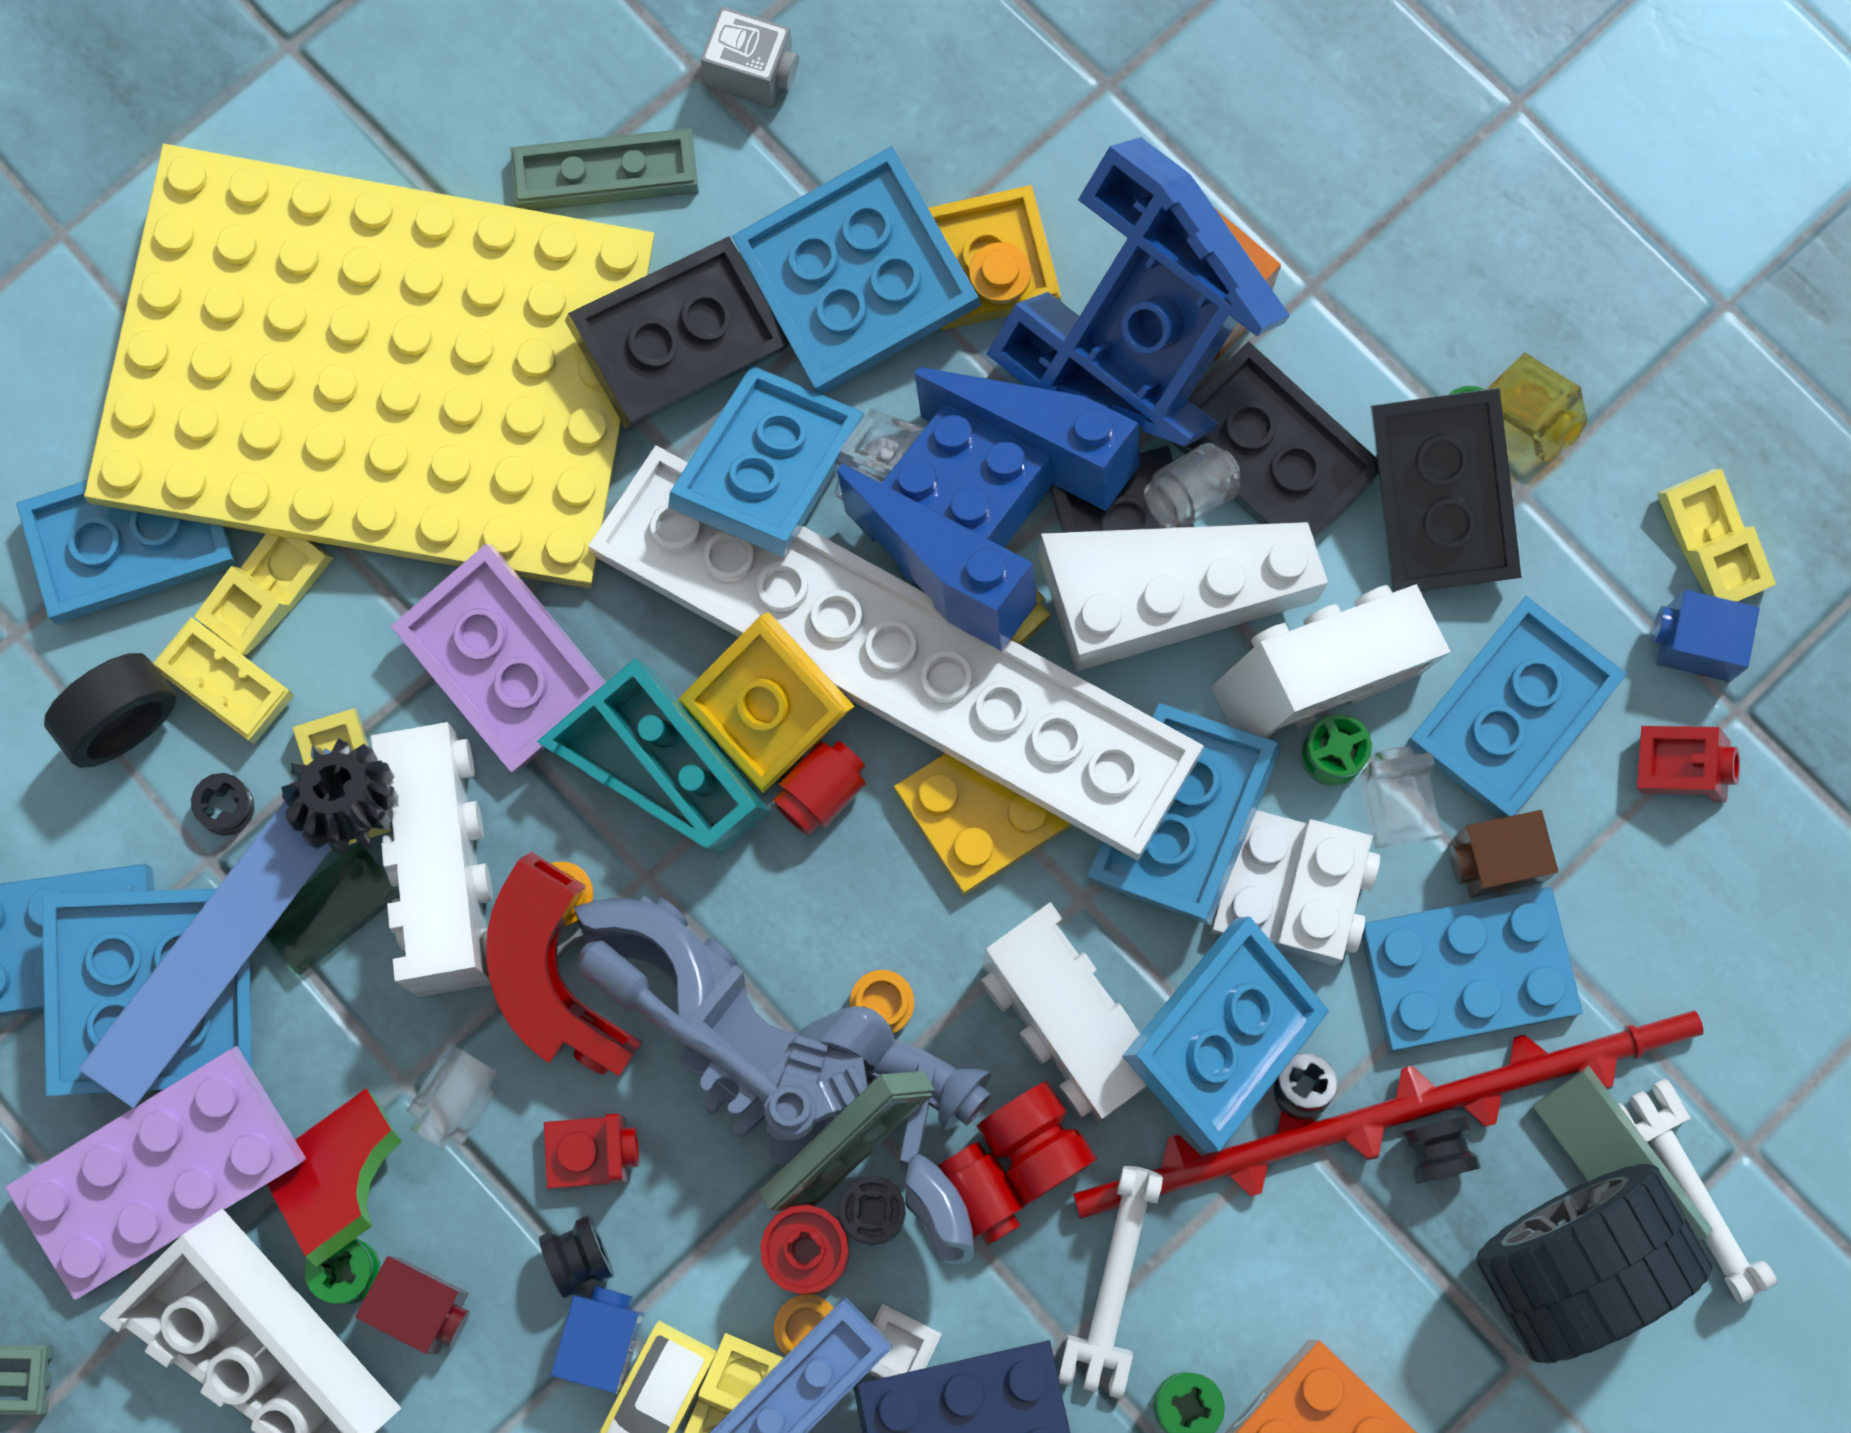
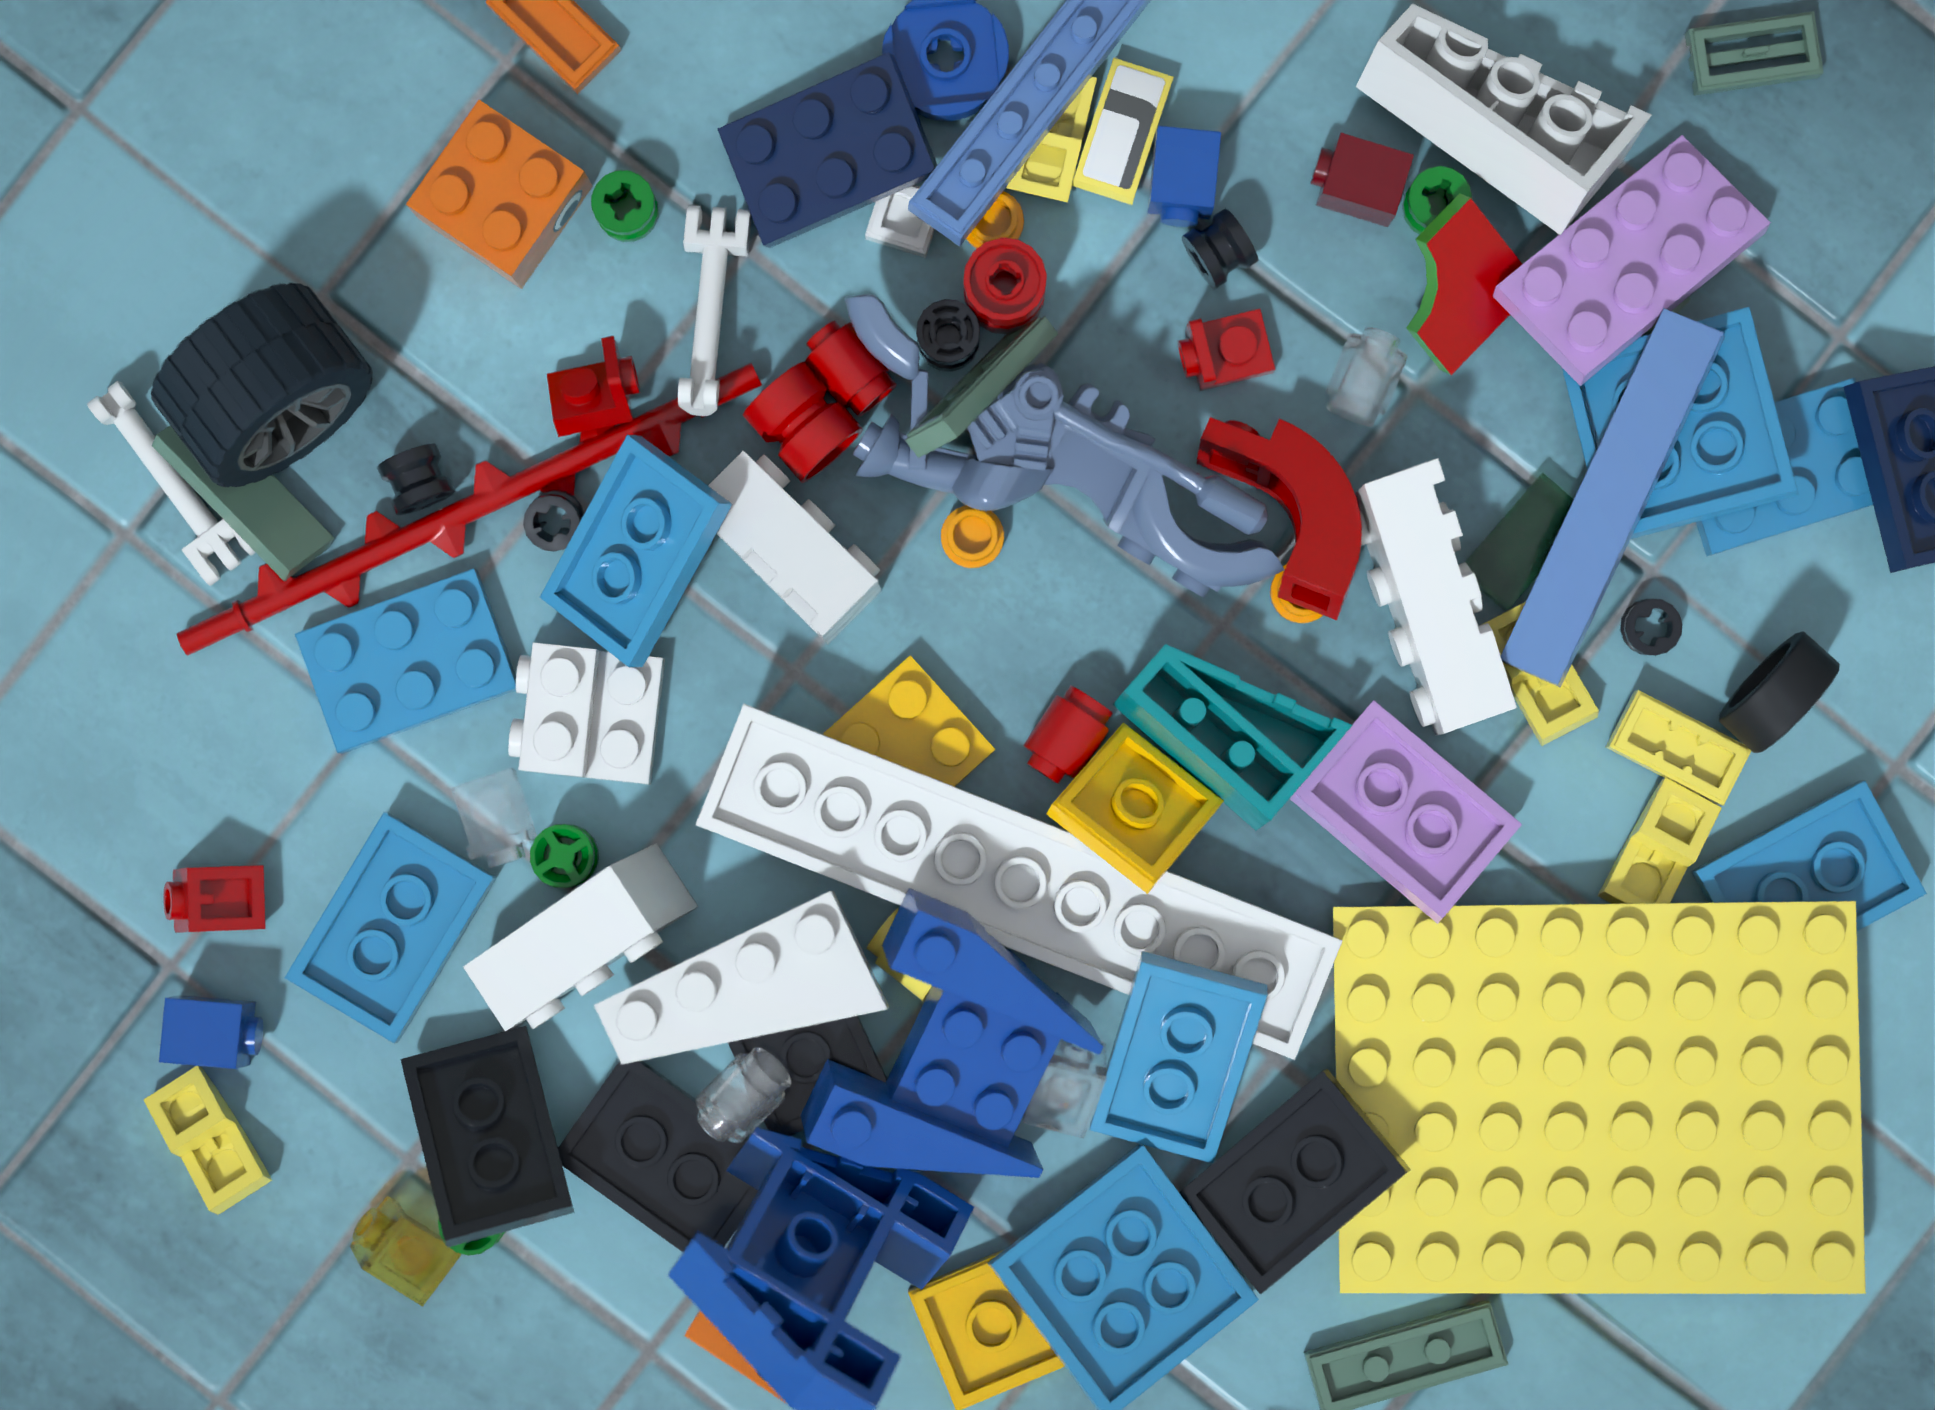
camera: 175 degrees right, 10 degrees up
(318, 784) = (1552, 626): black gear -> none
(1000, 273) = (973, 1300): light orange plate -> none
(1203, 829) = (681, 756): dark azure plate -> none
(1247, 1210) = (594, 393): none -> red bracket
(1503, 854) = (388, 775): reddish brown brick -> none

